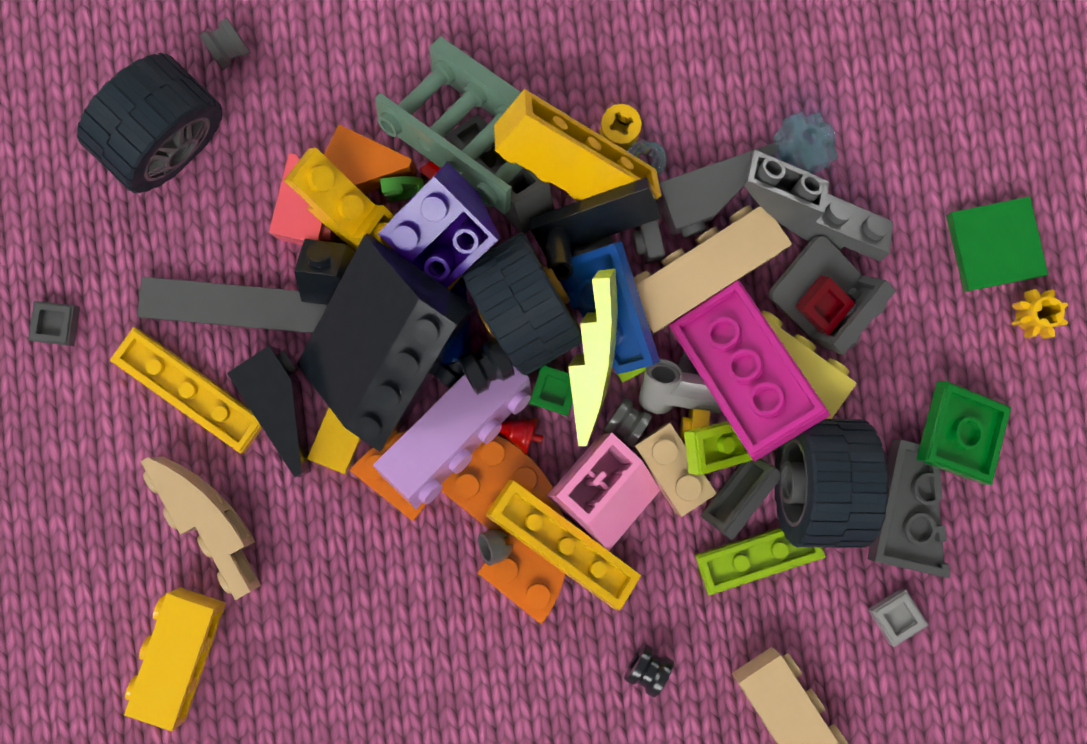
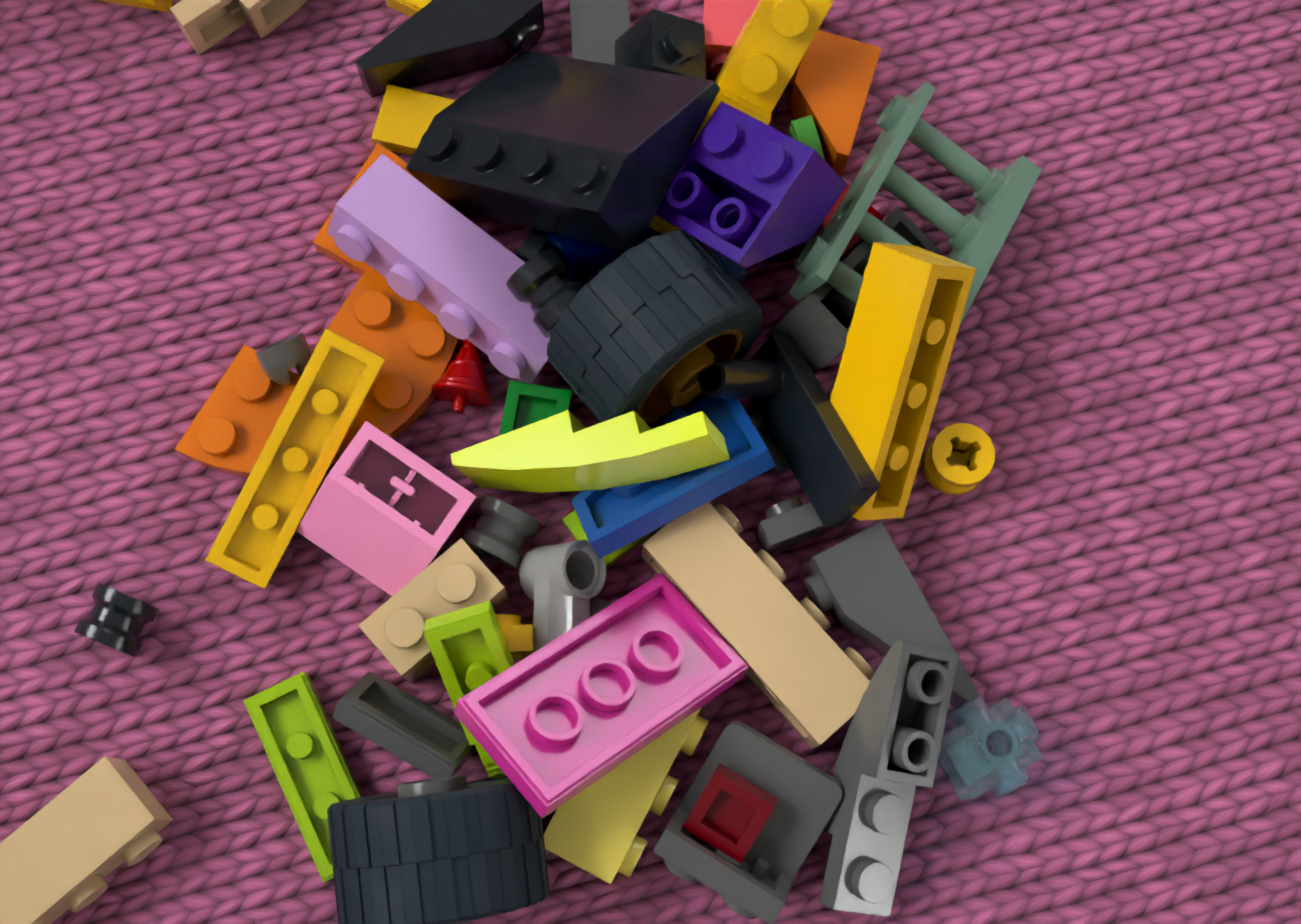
camera: 75 degrees right, 10 degrees down
(657, 152) = (933, 495): clear light blue bush -> none

